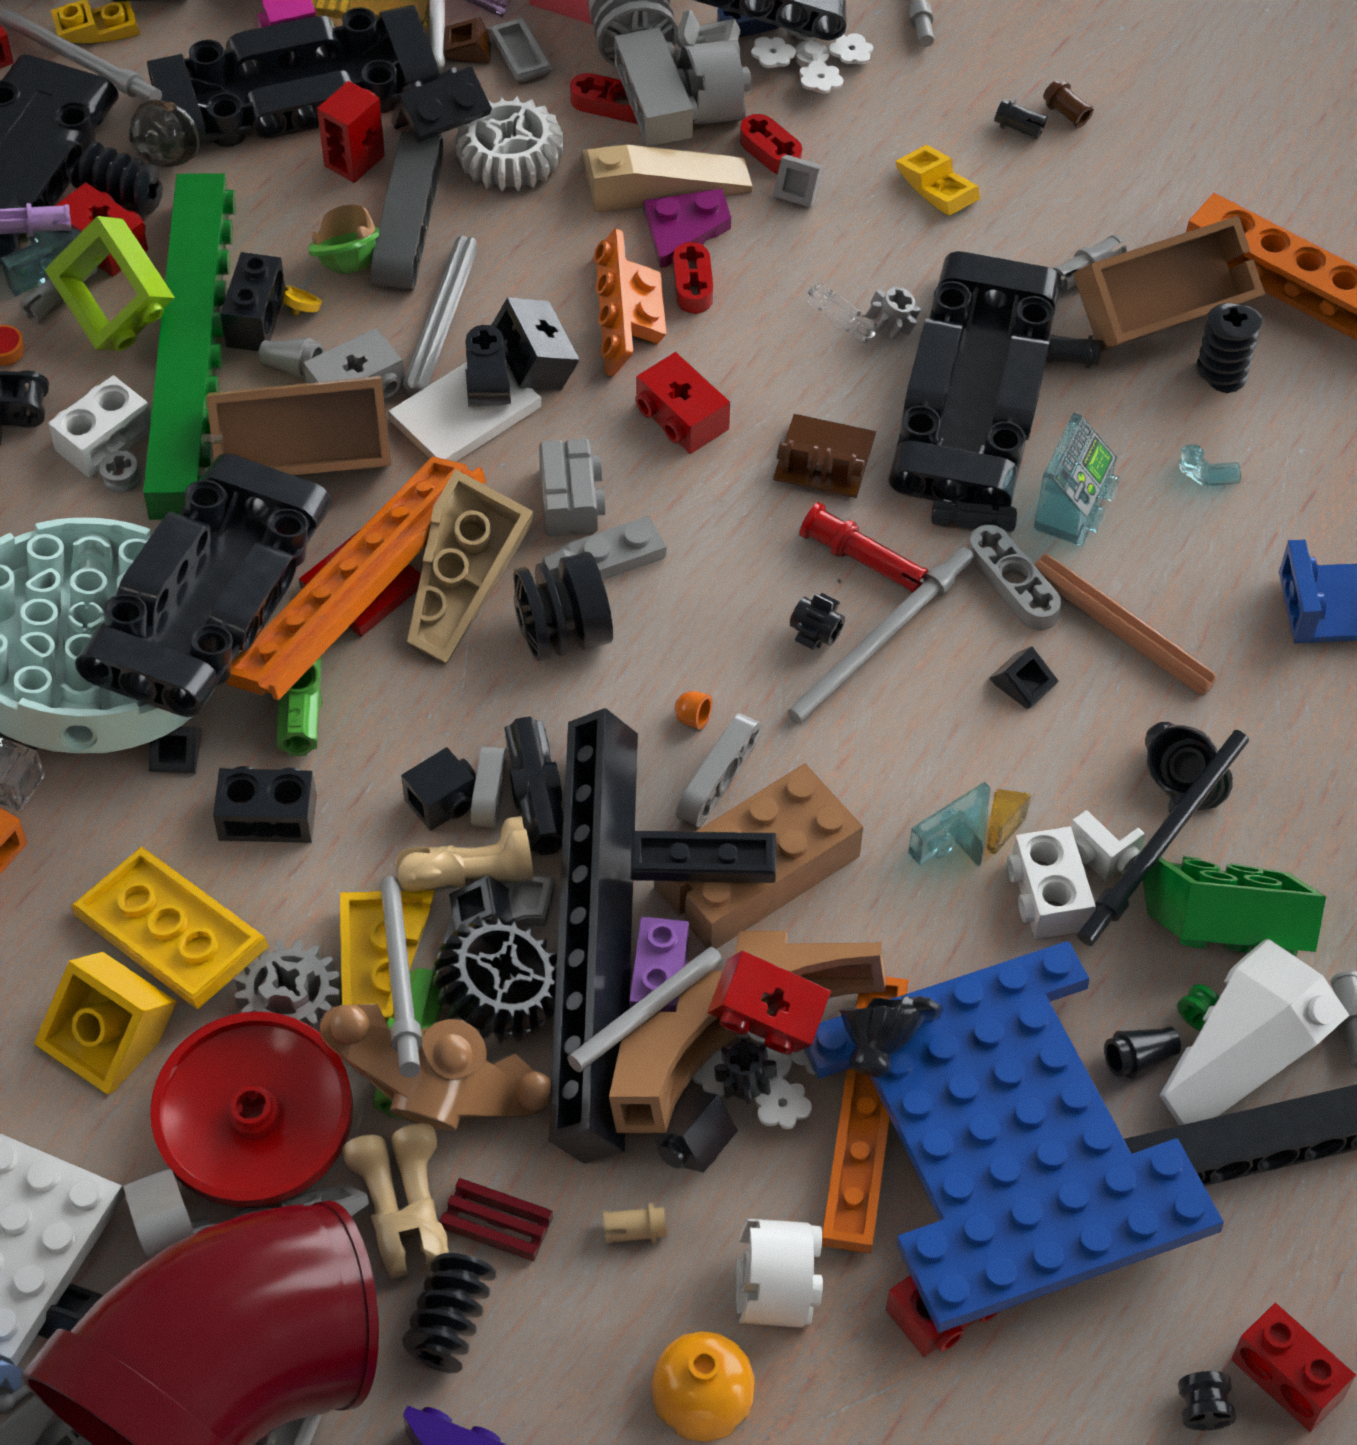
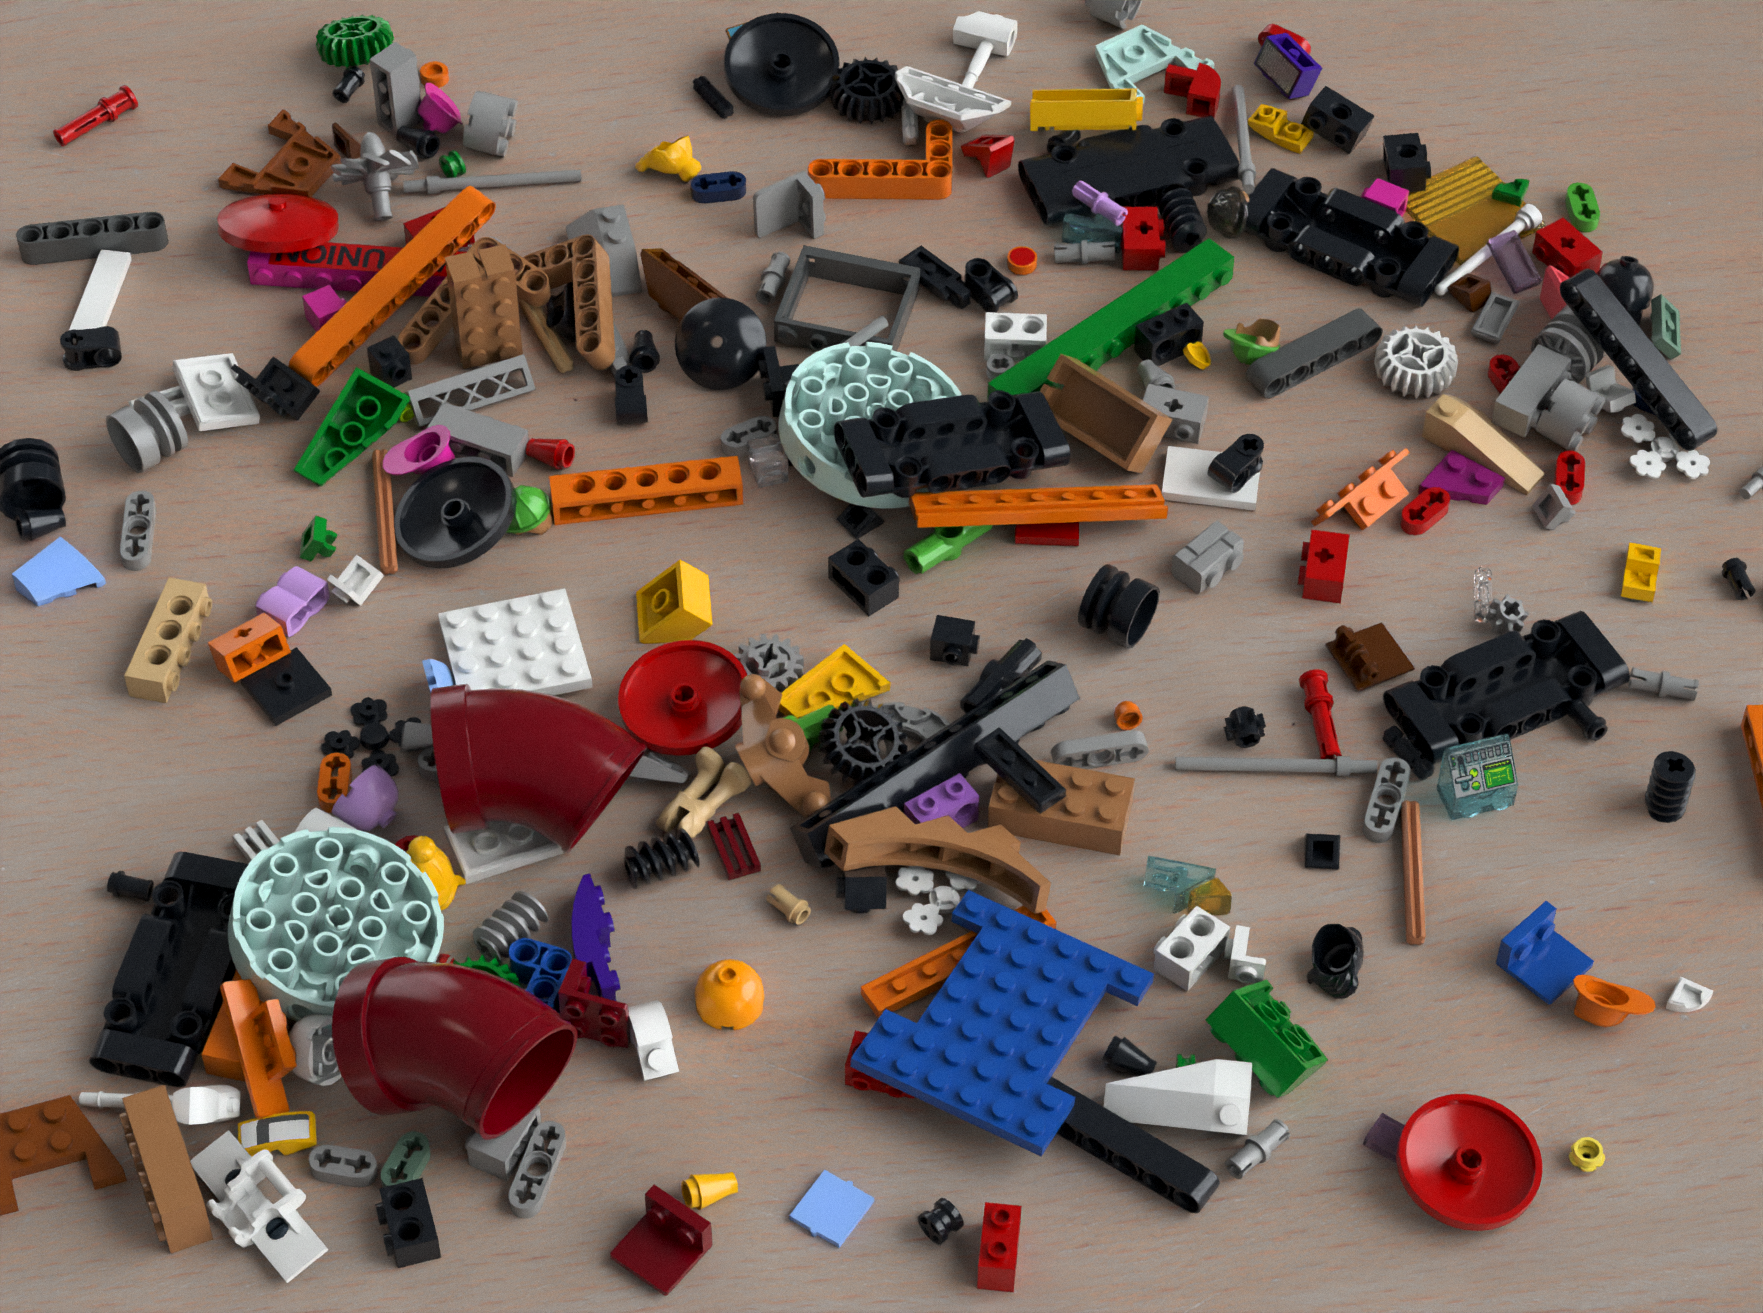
camera: 50 degrees right, 5 degrees down
(82, 256) = (1117, 247): lime window -> none
(158, 1211) = (592, 695): light grey beam -> none
(169, 927) = (751, 591): yellow tile -> none
(351, 131) = (1331, 286): red brick -> none
(405, 1031) = (771, 709): light grey bar -> none
(440, 315) = (1262, 420): light grey axle -> none
(441, 104) = (1394, 308): black bracket -> none
(442, 866) = (939, 698): tan piece -> none
(465, 555) = (1116, 536): tan wedge -> none
(482, 899) = (906, 707): black slope -> none
(488, 787) = (970, 663): light grey beam -> none
(535, 343) = (1285, 472): black brick -> none
(616, 548) = (1192, 608): light grey hinge -> none
(644, 1009) = (901, 809): light grey bar -> none
(741, 1058) = (918, 883): black gear -> none
(777, 1273) = (816, 977): white brick -> none
(793, 999) = (956, 835): red brick -> none
(885, 1029) = (995, 917): black hair -> none
(1114, 900) = (1203, 980): black bar -> none
(1167, 283) = (1674, 719): medium nougat piece -> none
(1205, 472) = (1572, 841): clear light blue arm -> none

